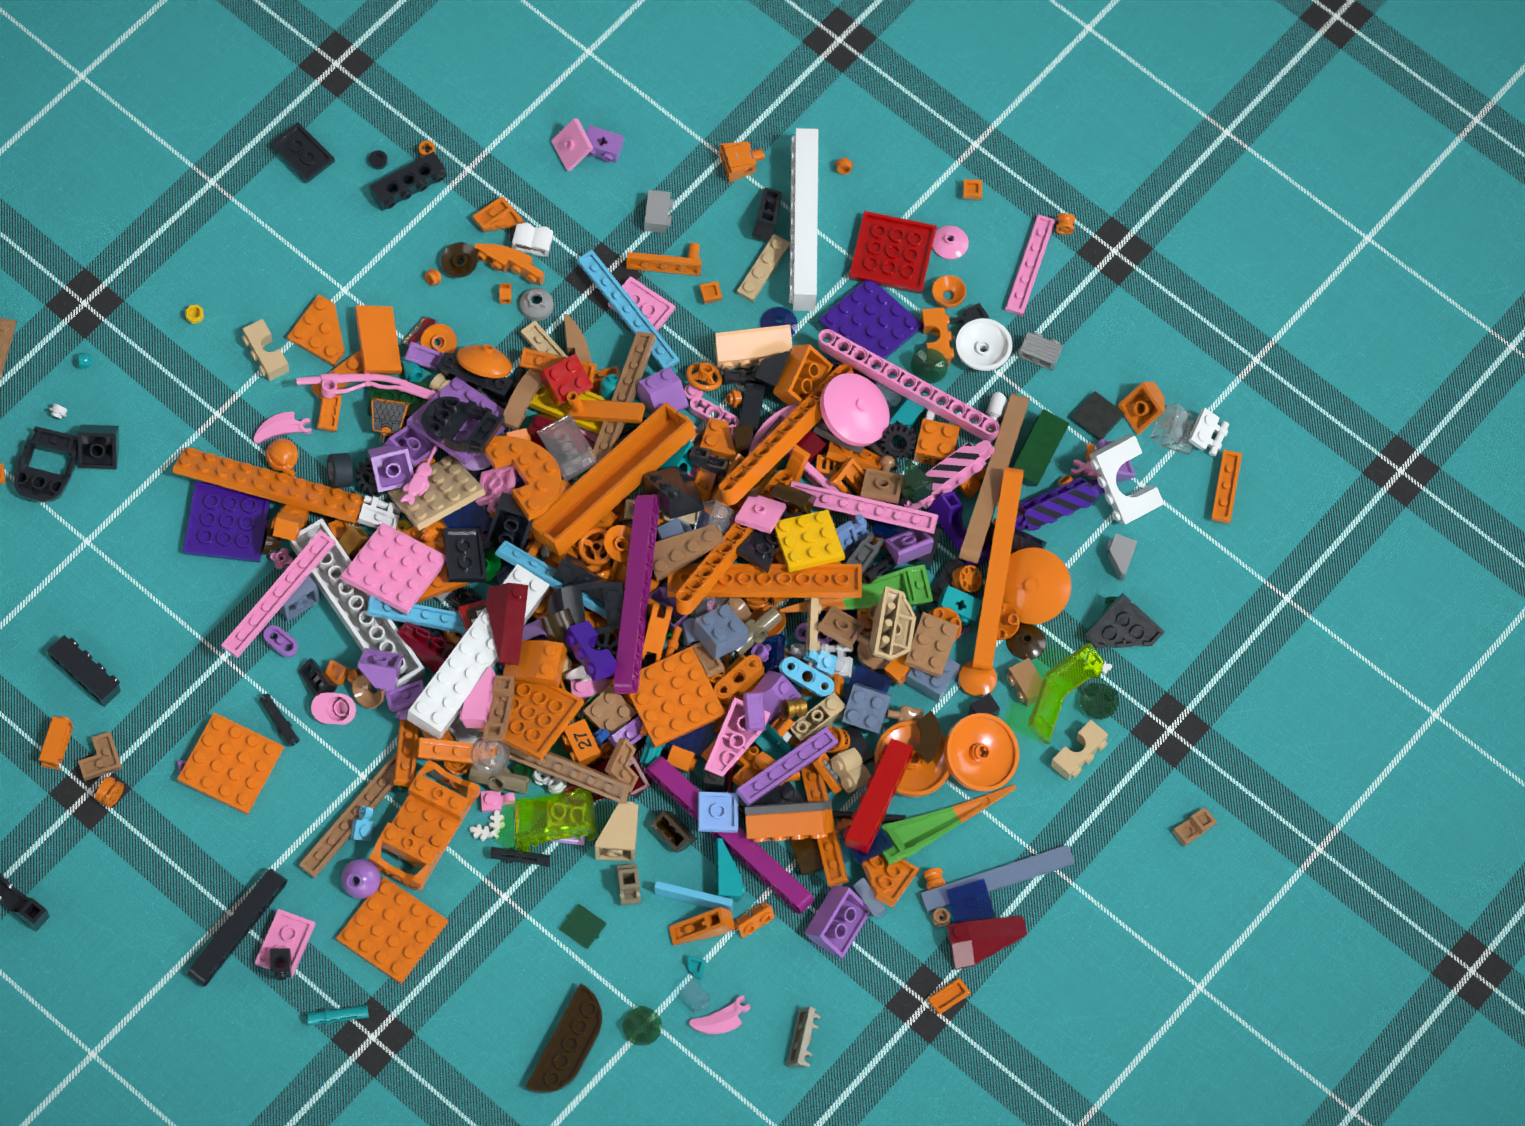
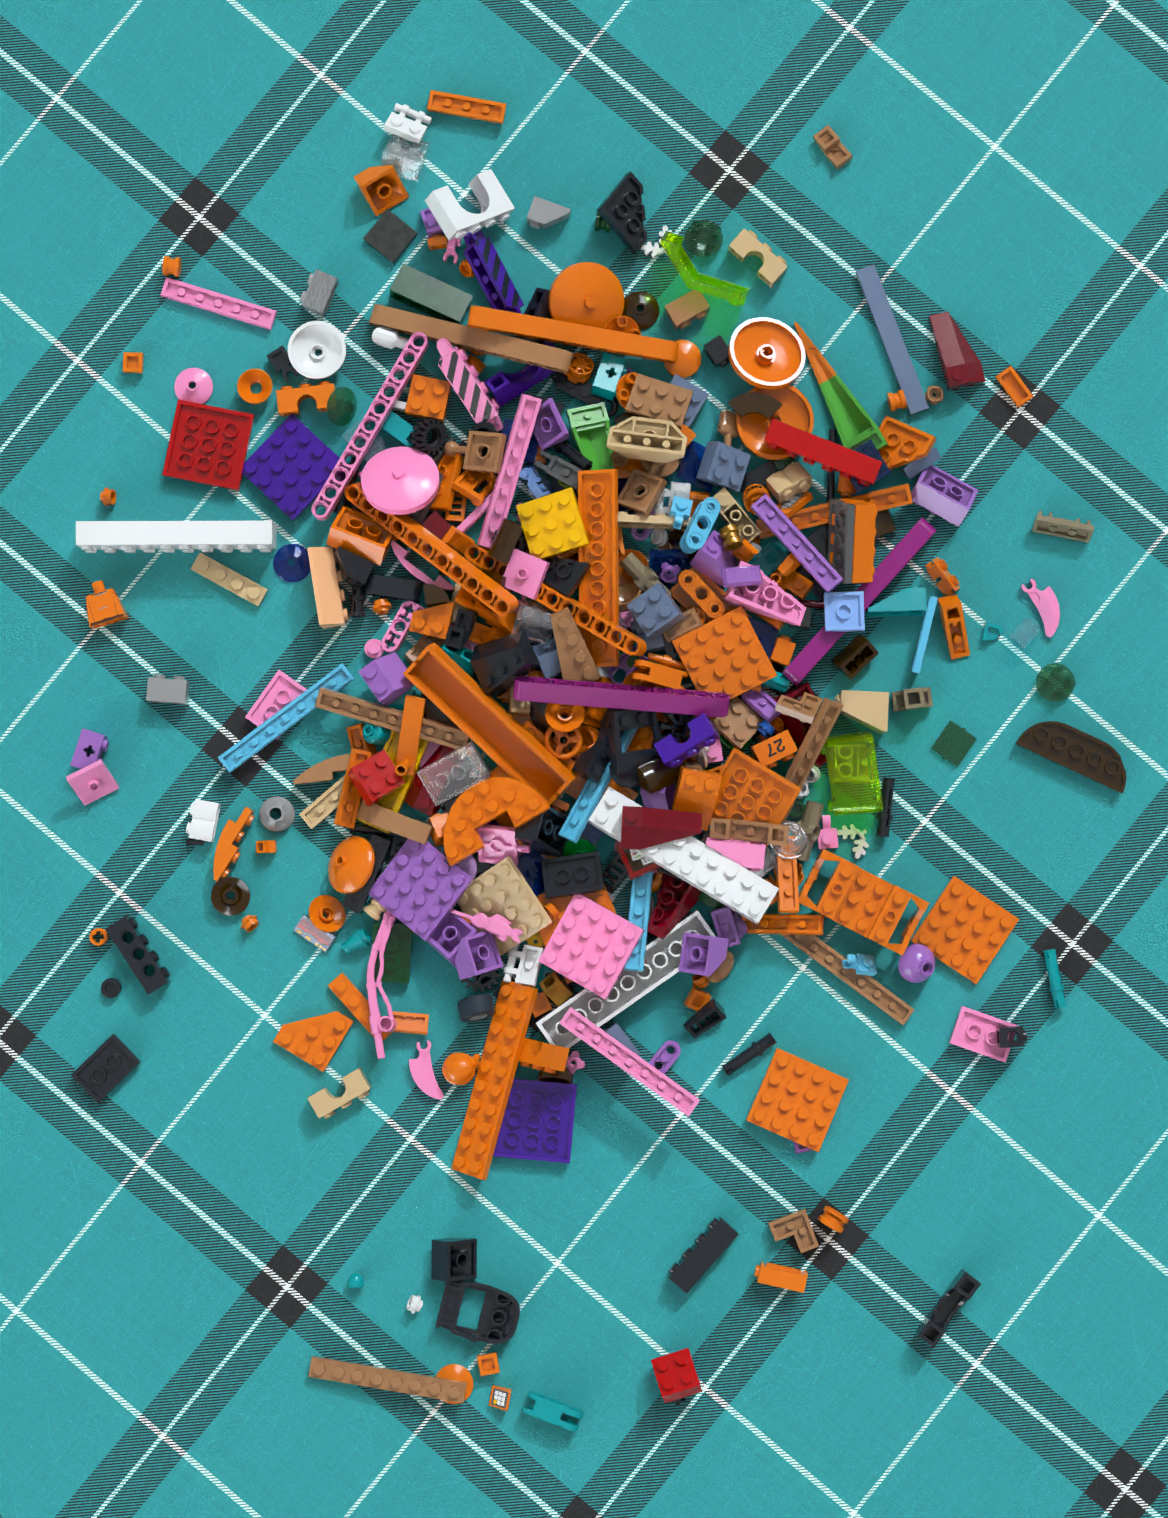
camera: 80 degrees left, 20 degrees up
(194, 314) = (299, 1170): yellow tile -> none
(237, 927) = (969, 1082): black beam -> none
(333, 708) = (738, 999): bright pink piece -> none
(378, 339) = (325, 976): orange tile -> none
(388, 417) = (416, 960): torso -> none
(423, 355) = (344, 927): medium lavender tile -> none
(447, 416) = (425, 900): black slope -> none
(497, 216) = (177, 858): orange wing -> none
(667, 264) = (230, 654): orange piece -> none
(704, 374) = (350, 633): orange piece -> none
(710, 292) = (260, 633): orange plate -> none
(767, 214) = (168, 576): black slope -> none
(915, 483) = (482, 418): clear green slope -> none
(970, 902) = (921, 365): clear blue plate -> none

